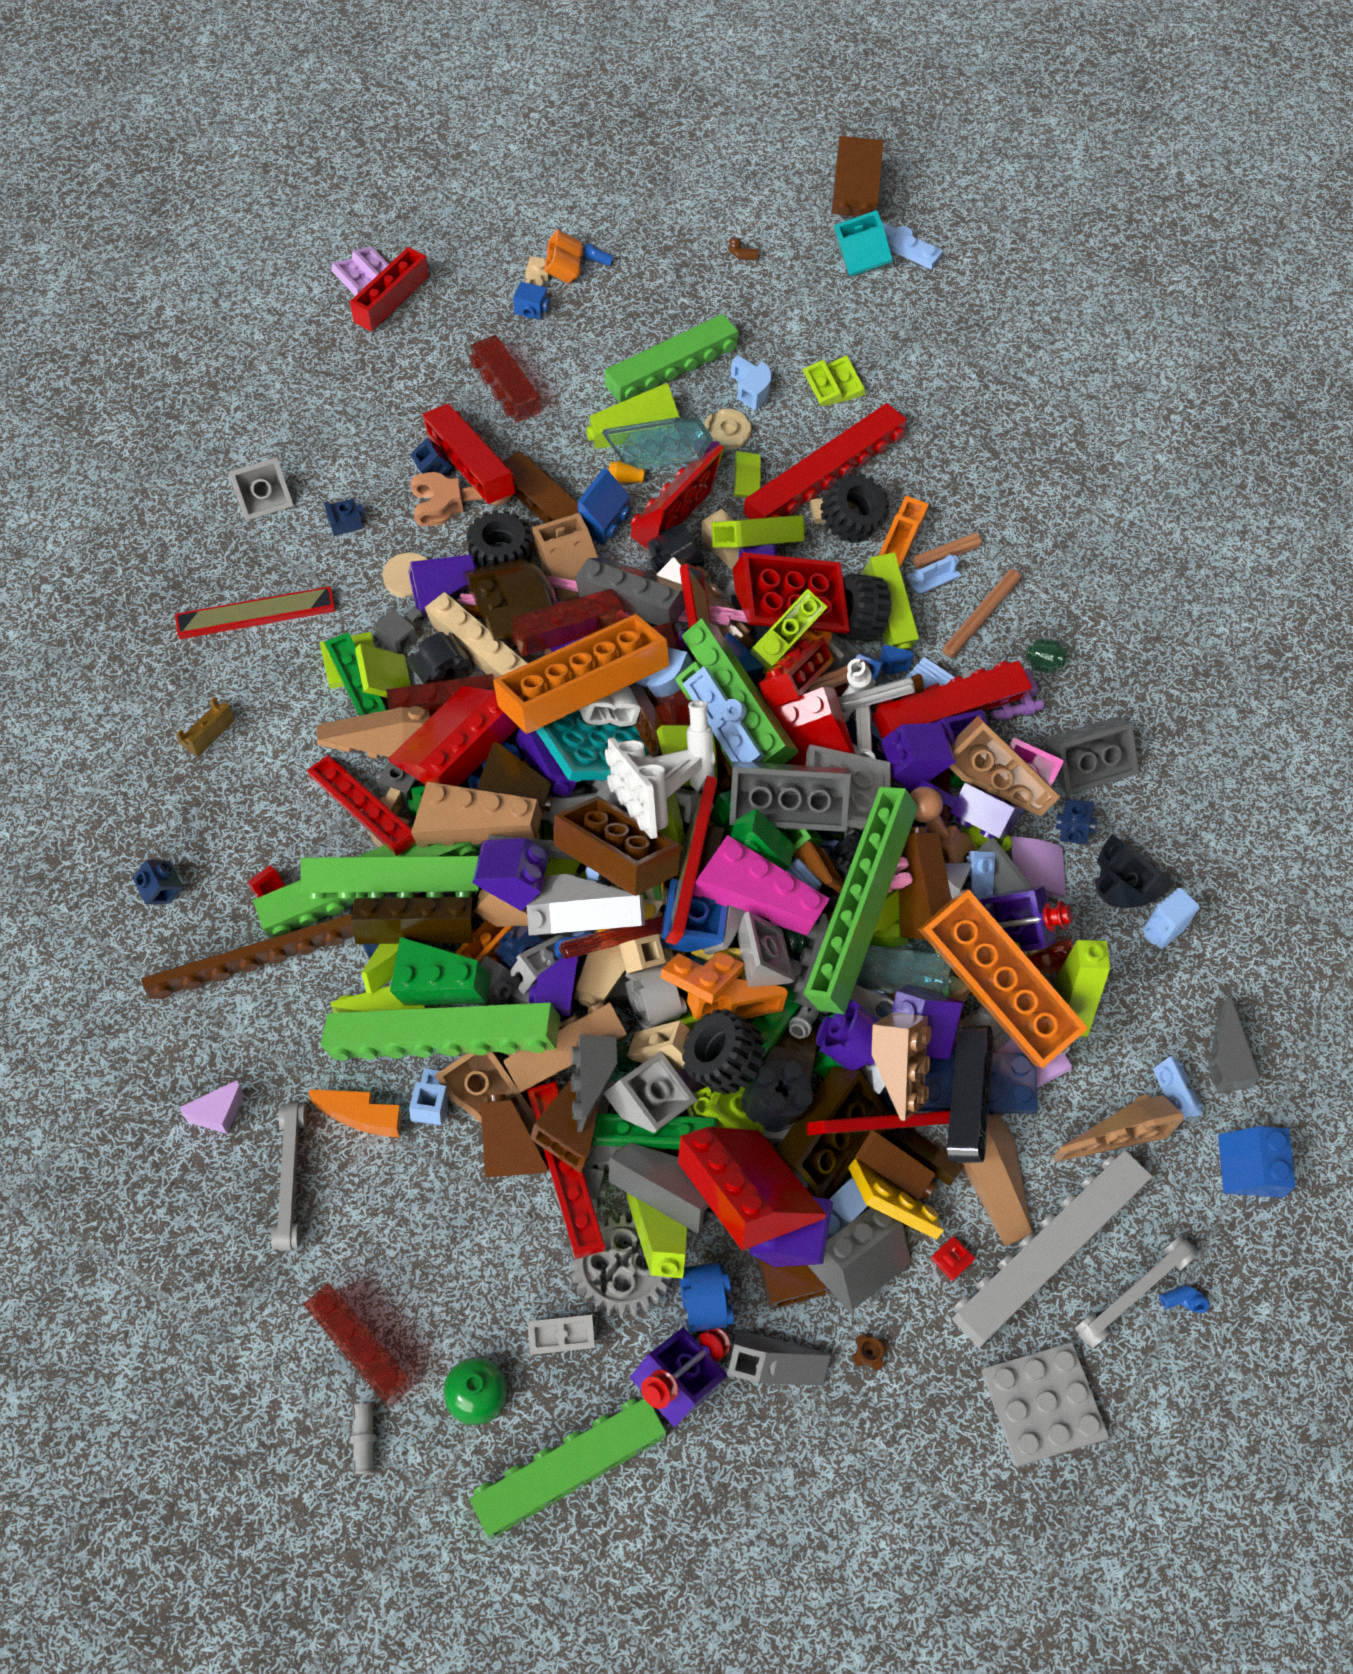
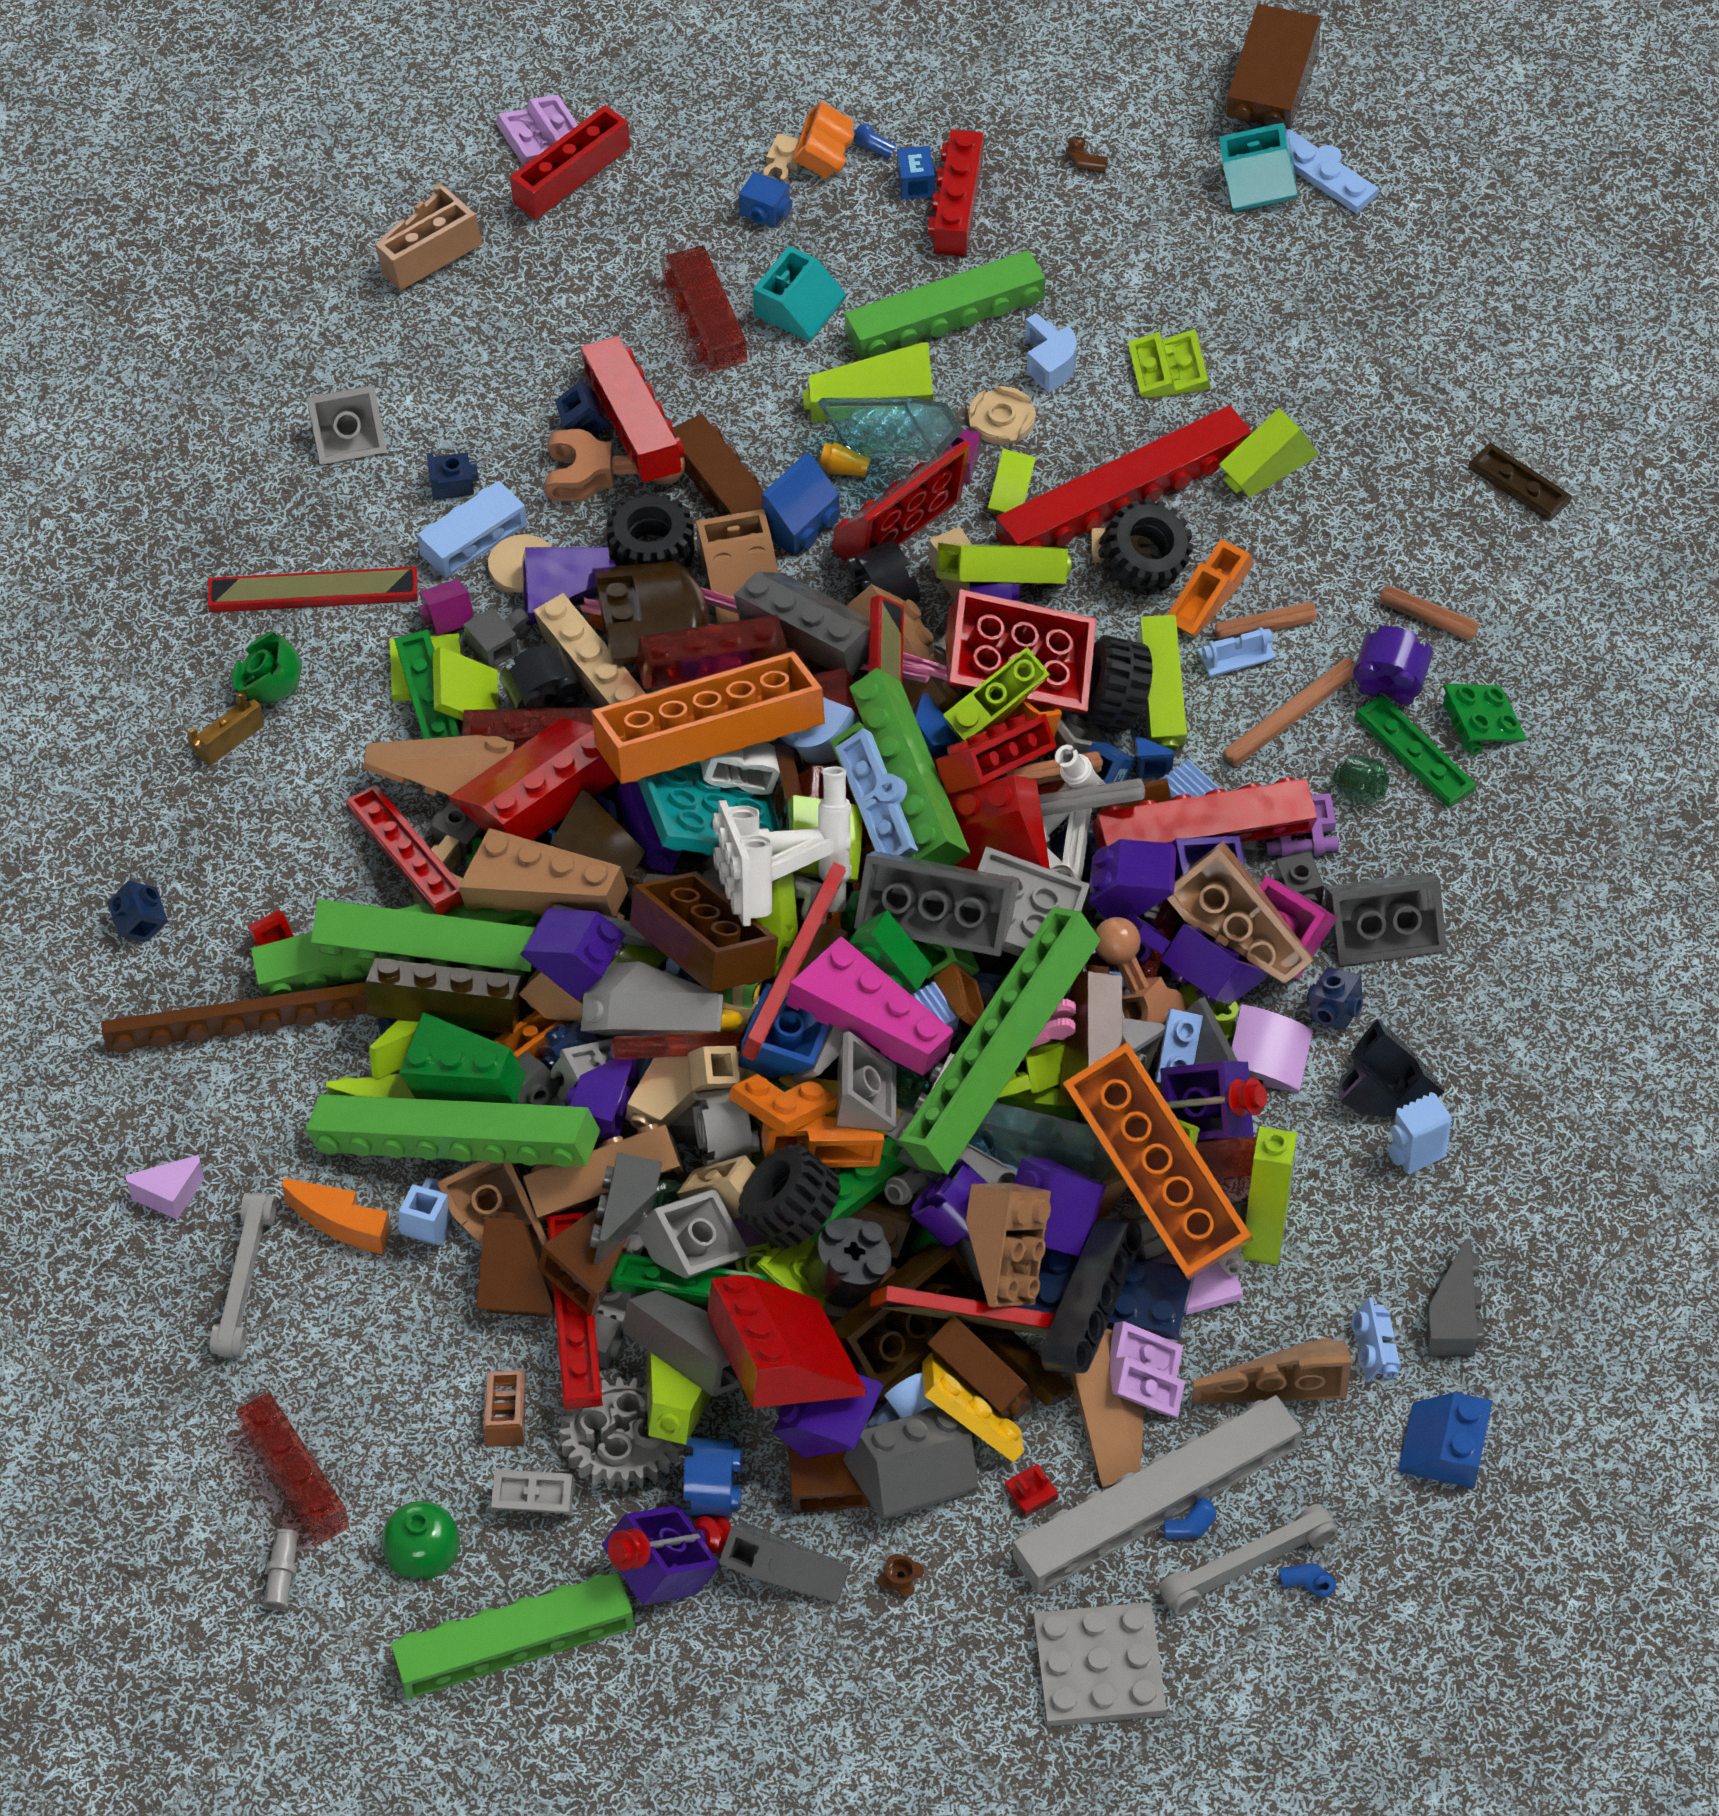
camera: 15 degrees right, 5 degrees down
(232, 677) = (269, 670): none -> green cylinder
(298, 352) = (428, 239): none -> medium nougat wedge
(357, 613) = (445, 607): none -> magenta brick
(366, 553) = (471, 529): none -> light blue brick
(525, 1276) = (505, 1430): none -> dark orange slope
(568, 361) = (797, 294): none -> teal slope
(631, 271) = (915, 172): none -> blue brick
(663, 285) = (958, 192): none -> red brick
(920, 433) = (1267, 455): none -> lime slope
(1017, 1143) = (1146, 1369): none -> lavender slope
(1026, 730) = (1300, 875): none -> dark grey brick
(1047, 569) = (1392, 664): none -> dark purple brick
(1057, 530) = (1429, 612): none -> nougat axle
(1075, 630) = (1415, 751): none -> green tile
(1085, 1268) = (1194, 1524): none -> blue arm
(1091, 433) = (1520, 482): none -> dark brown tile
(1113, 598) = (1481, 715): none -> green hinge

